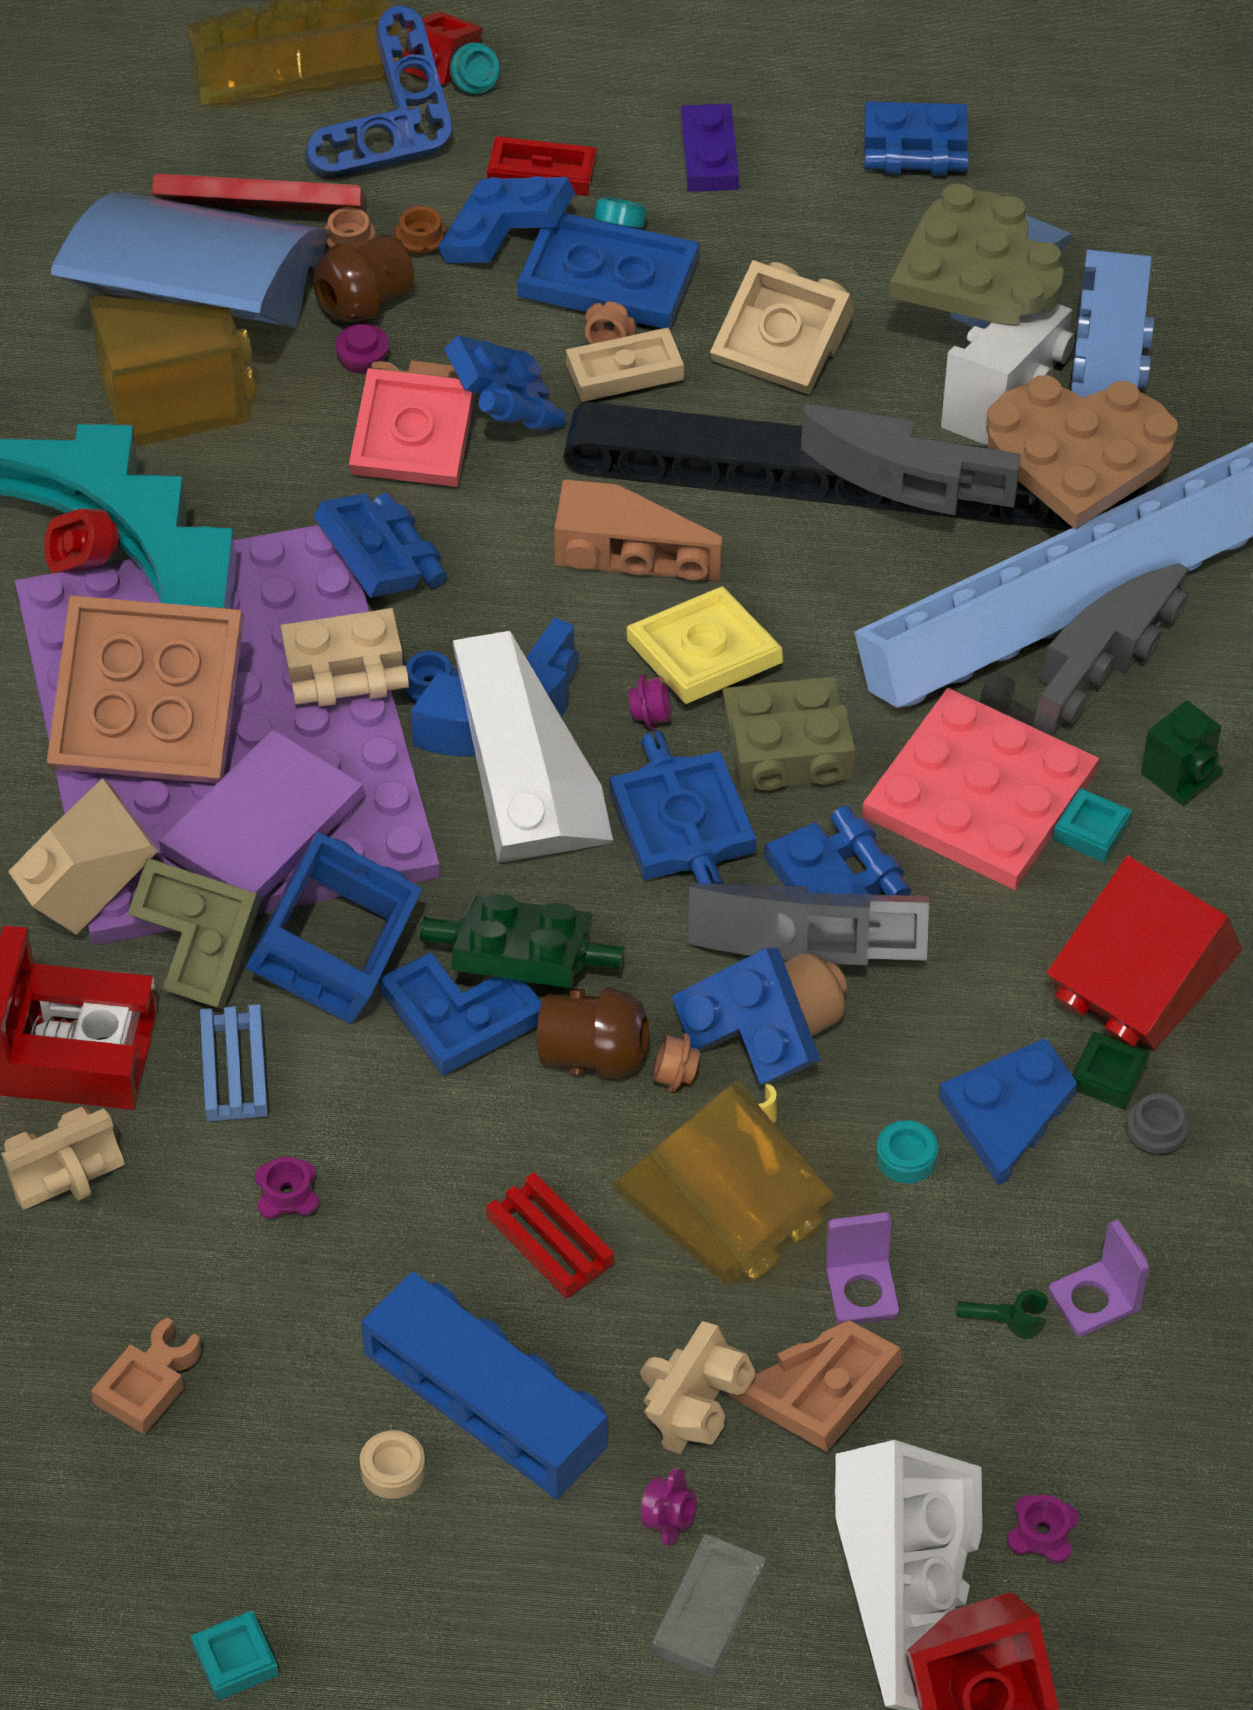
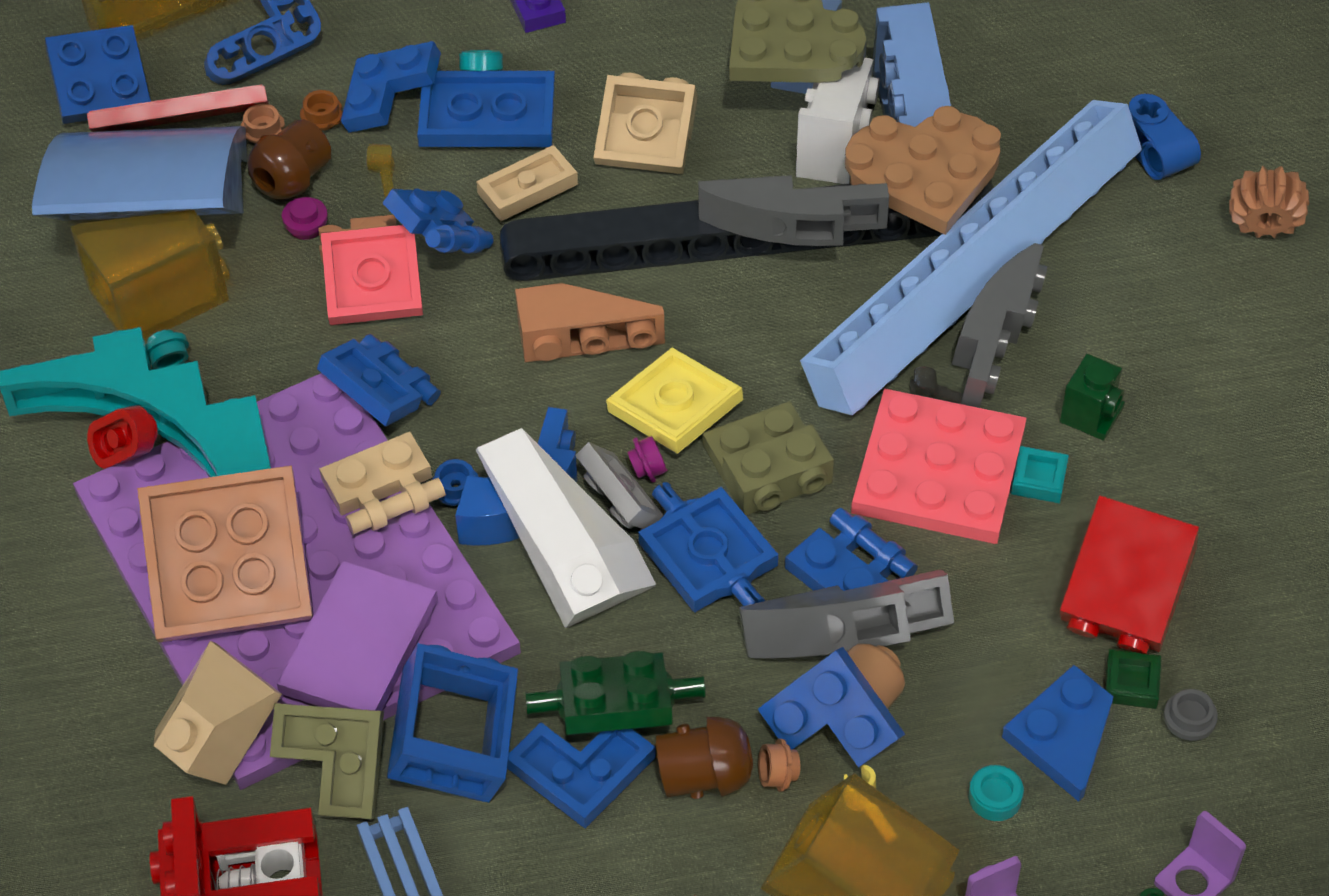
camera: 15 degrees left, 0 degrees up
(161, 457) = (167, 348): none -> teal plate
(181, 130) = (96, 71): none -> blue plate
(468, 300) = (380, 159): none -> clear yellow hand
(535, 158) = (397, 32): red tile -> none
(598, 330) = (494, 160): nougat plate -> none
(606, 722) = (611, 478): none -> light grey plate

